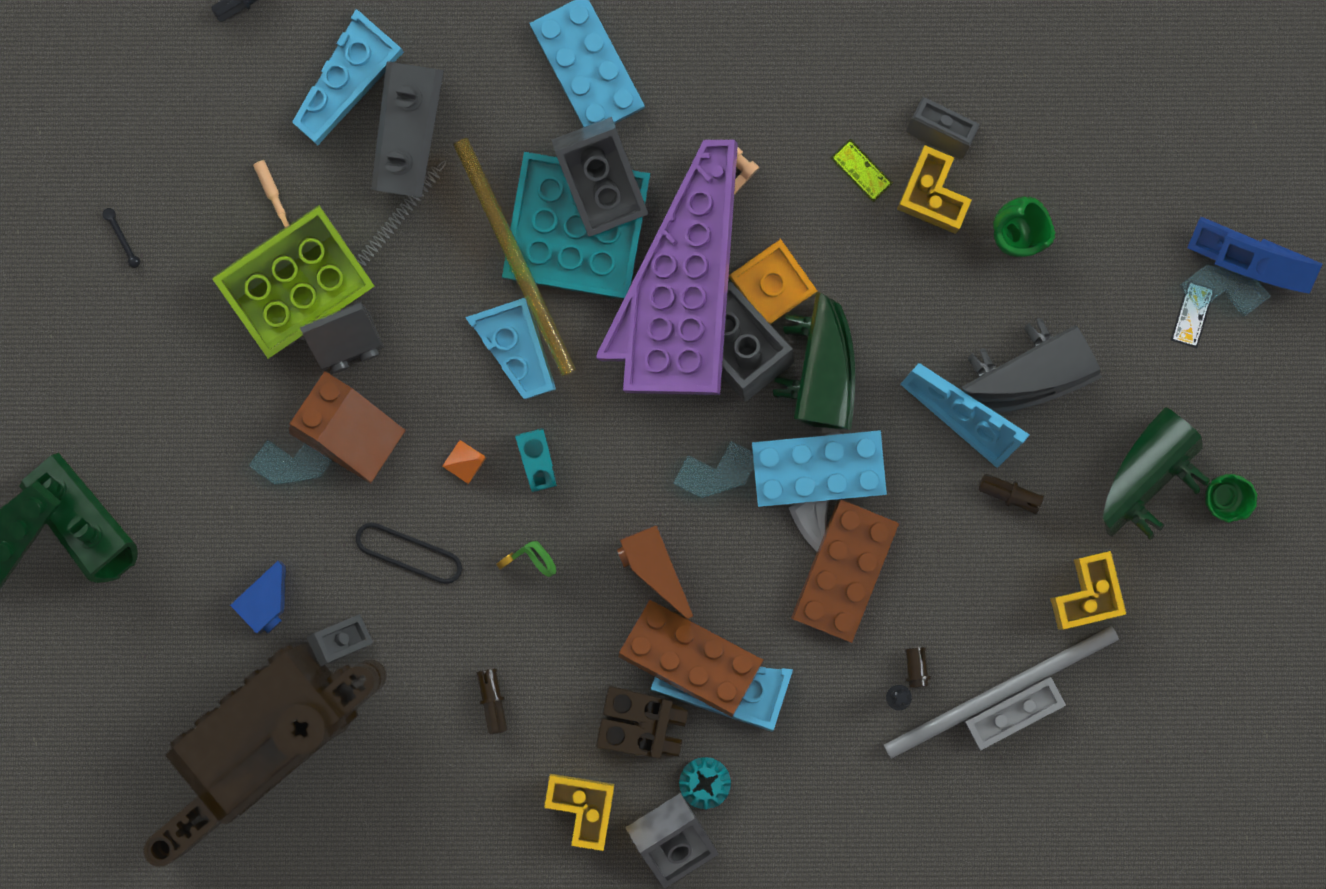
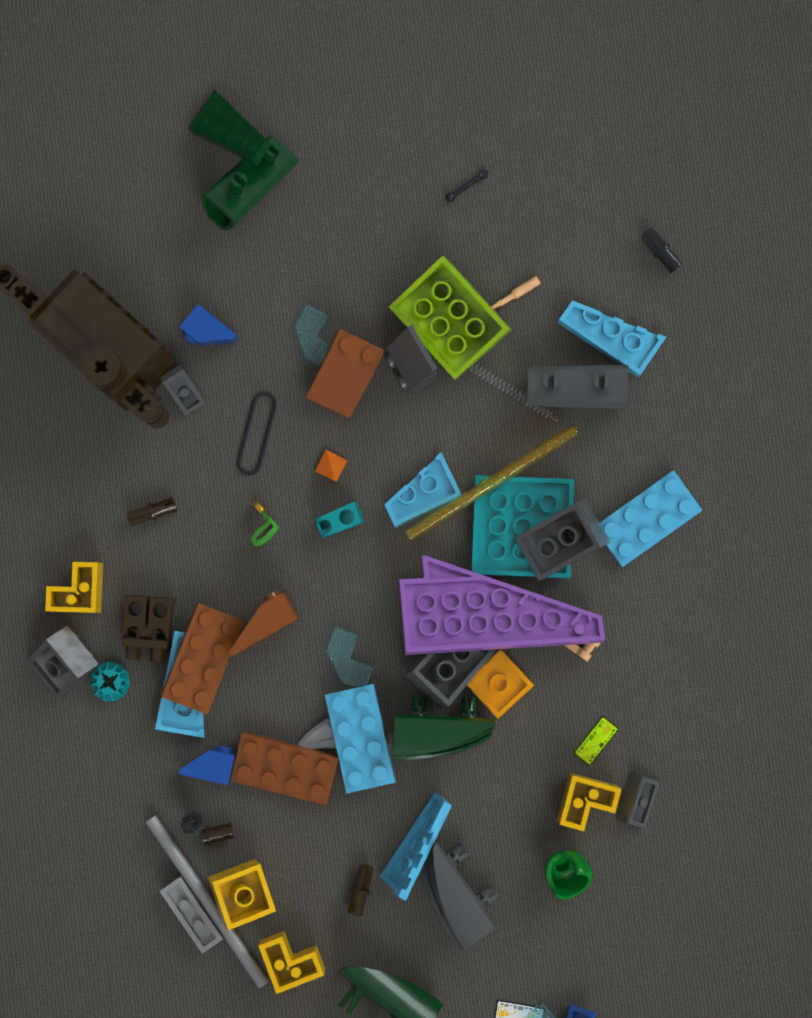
camera: 85 degrees right, 0 degrees up
(829, 663) = (212, 766): none -> blue slope
(996, 644) = (241, 894): none -> yellow brick

